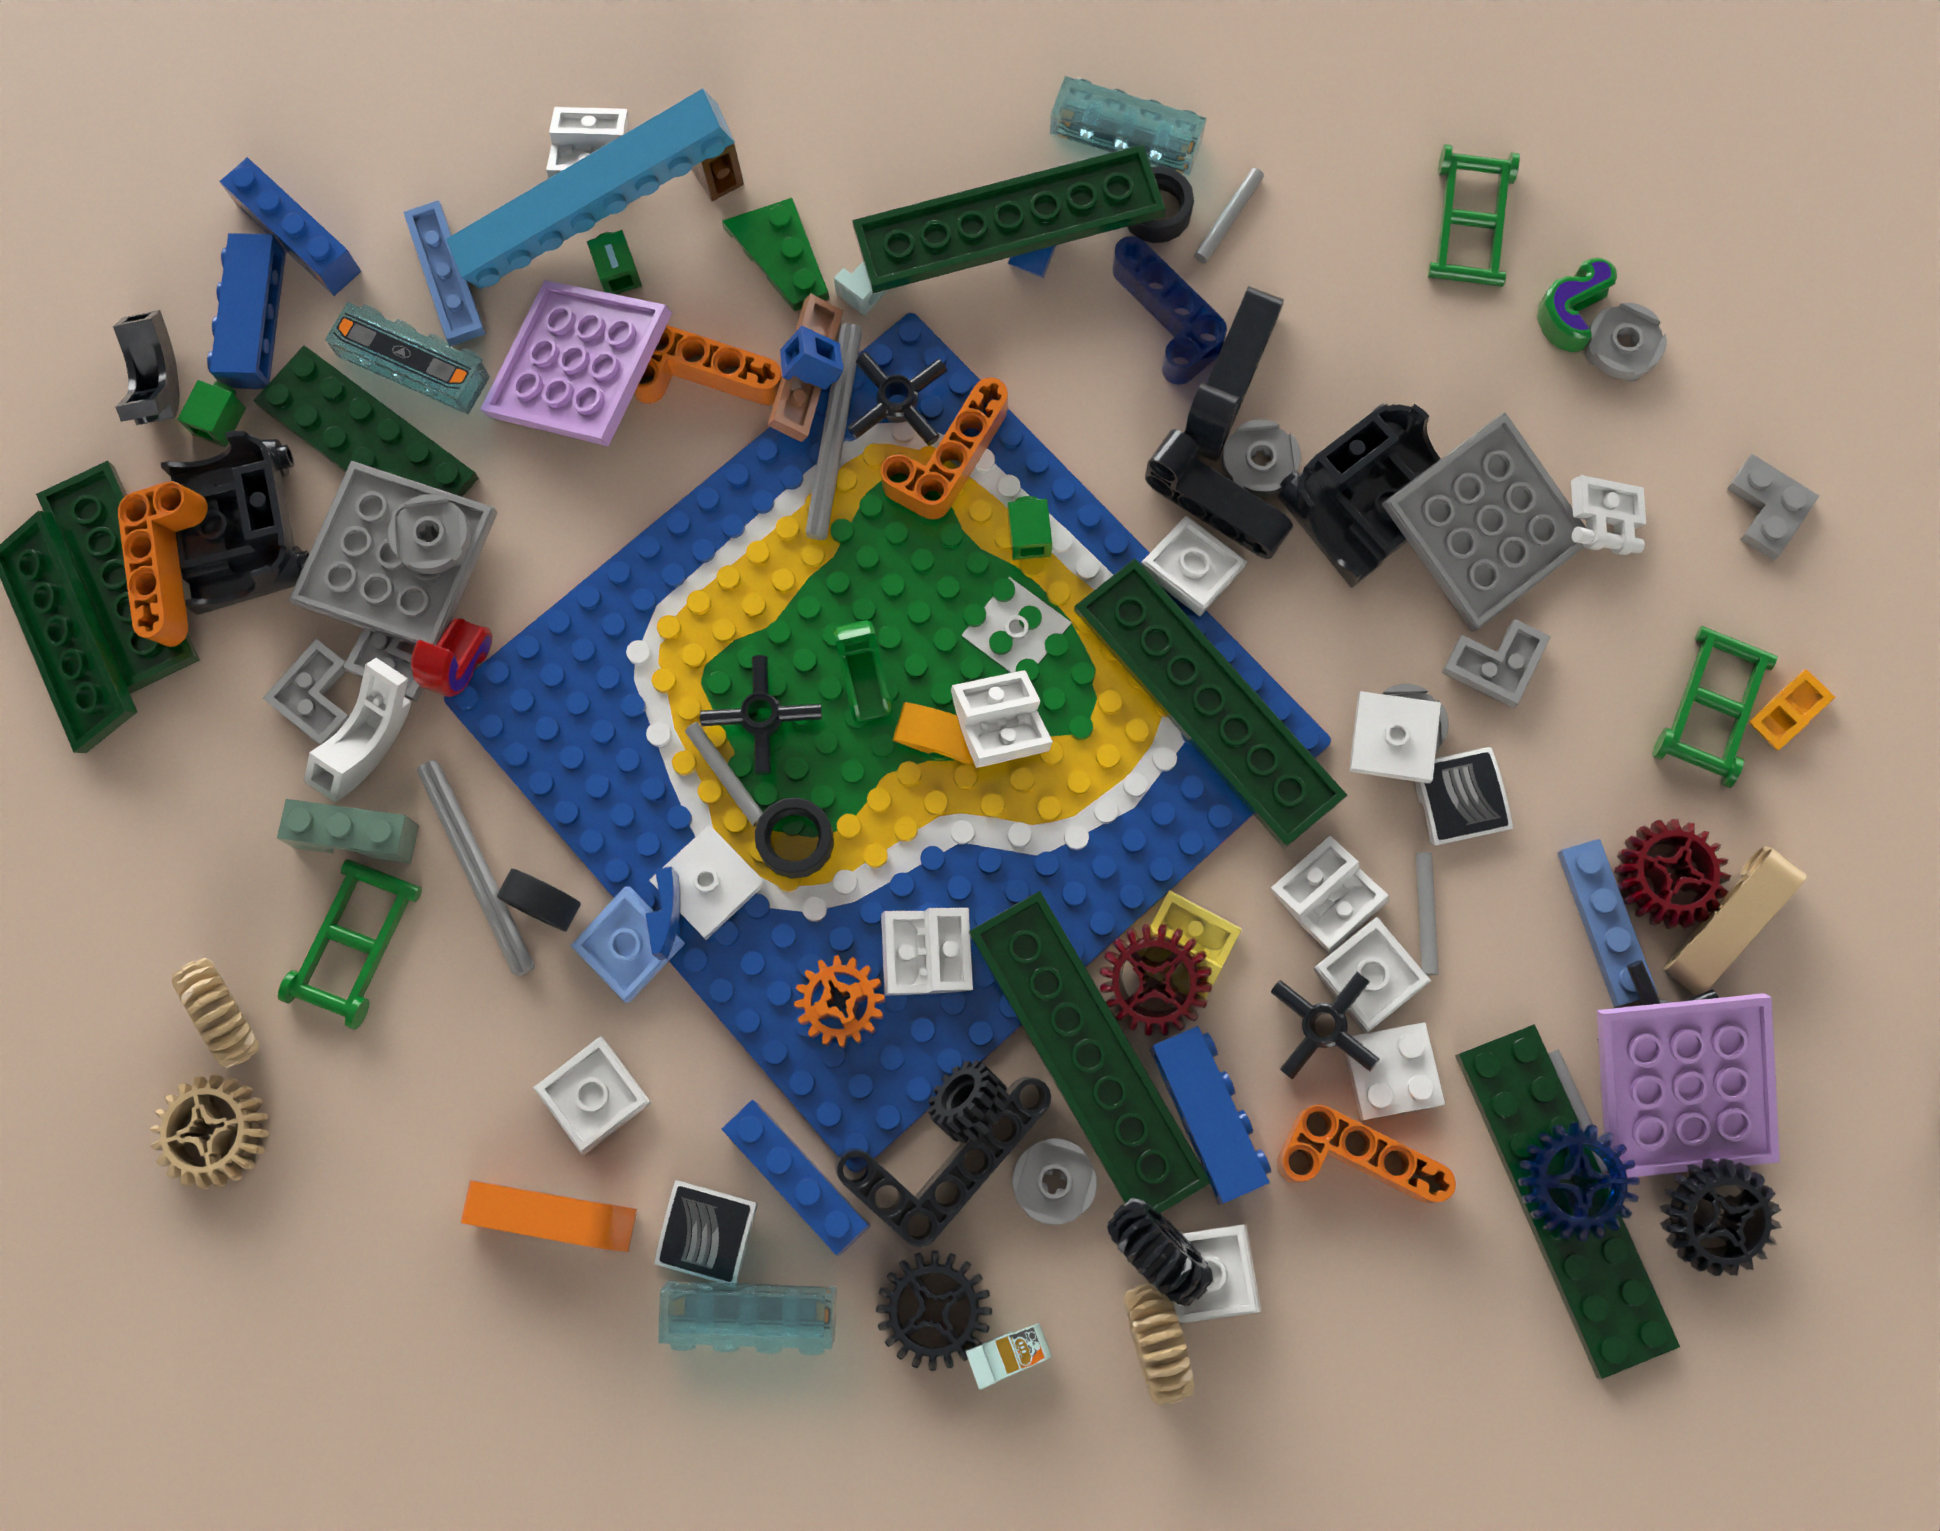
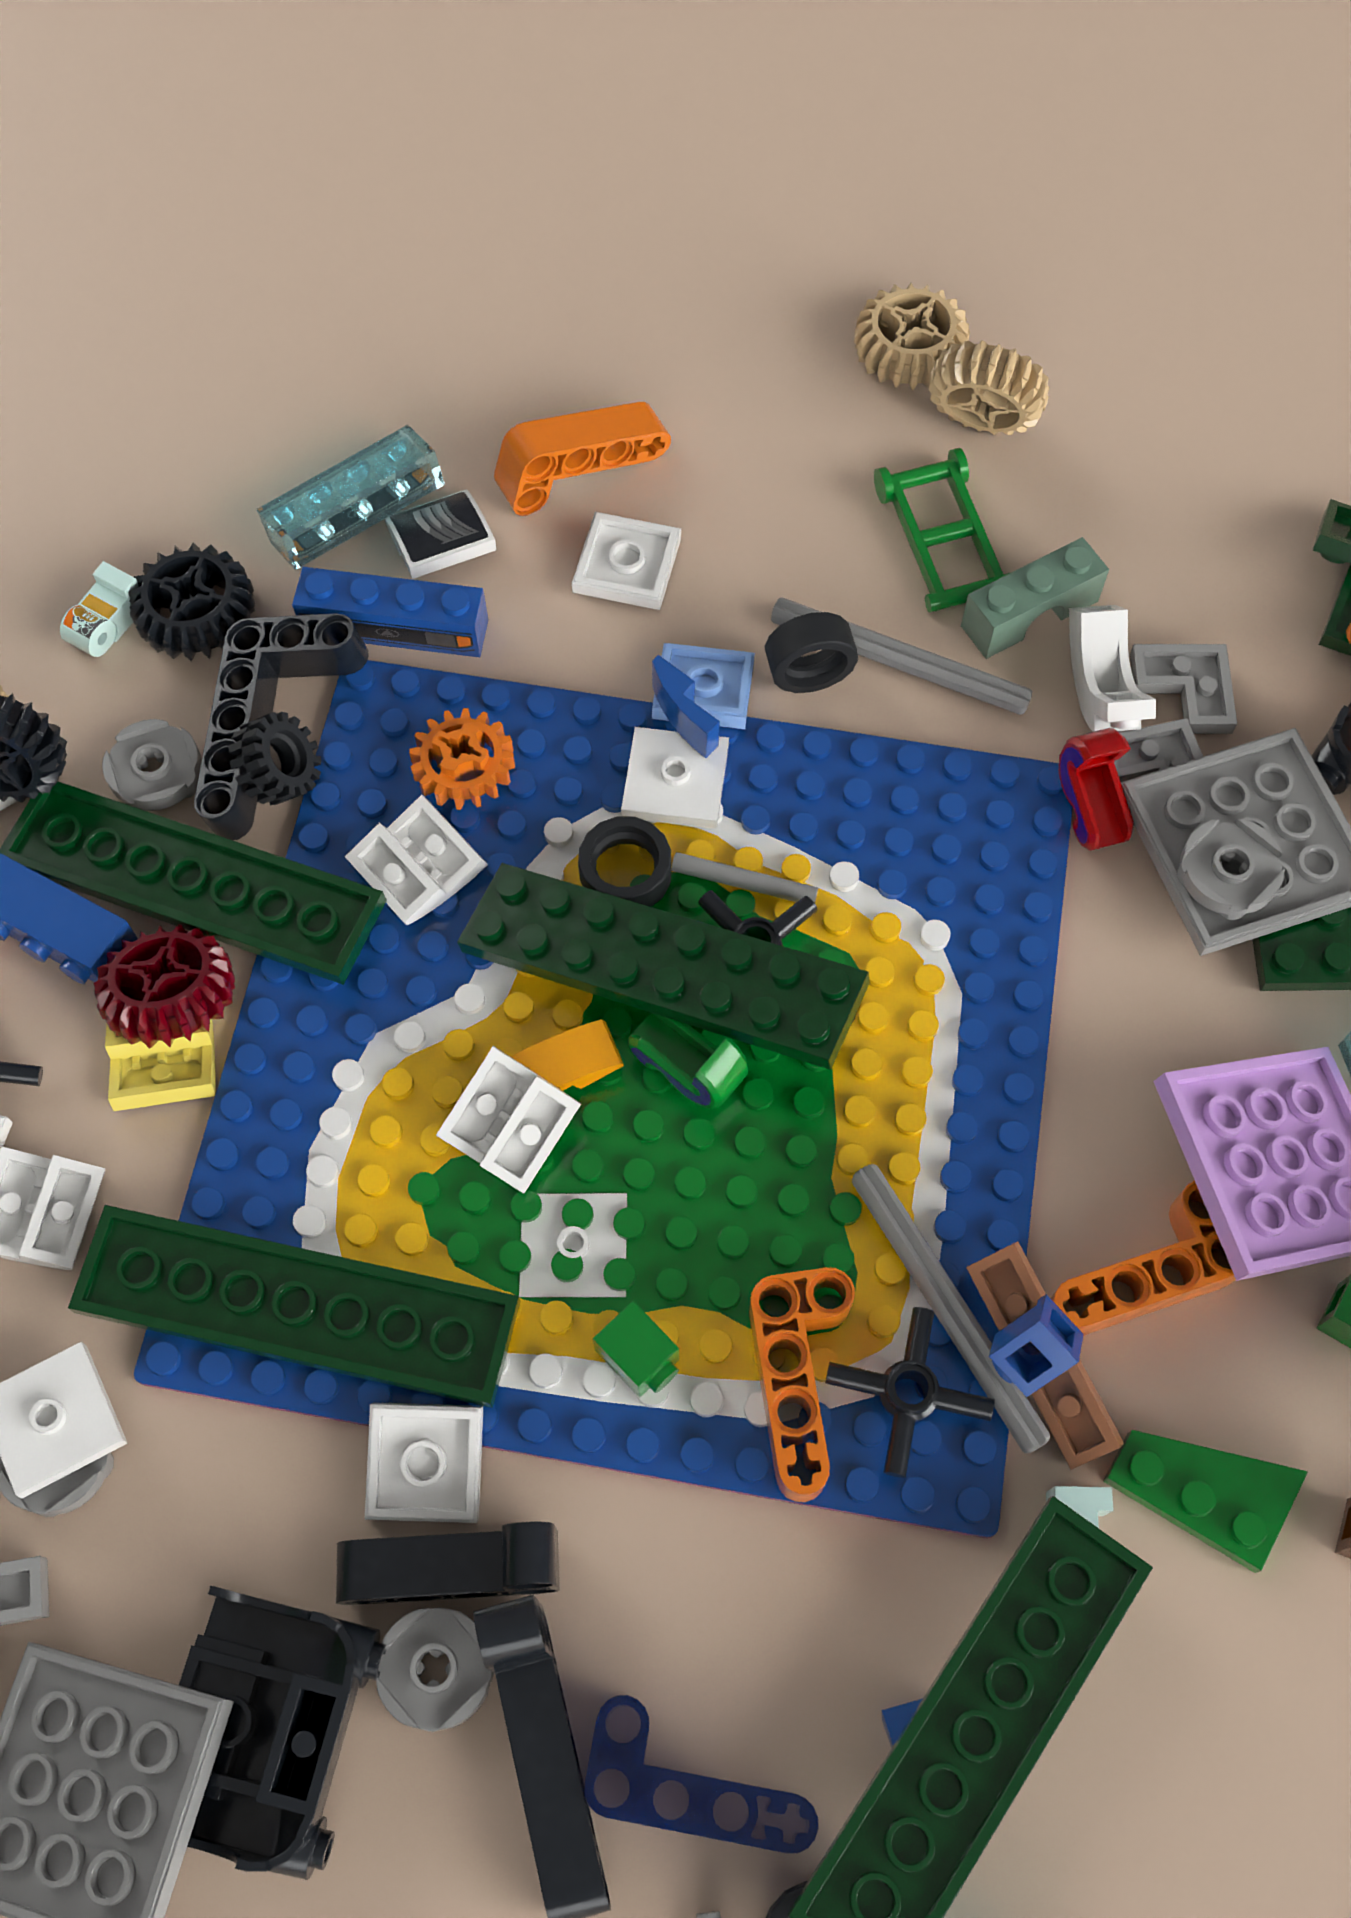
camera: 140 degrees right, 10 degrees down
(832, 738) = (667, 964): none -> dark green plate

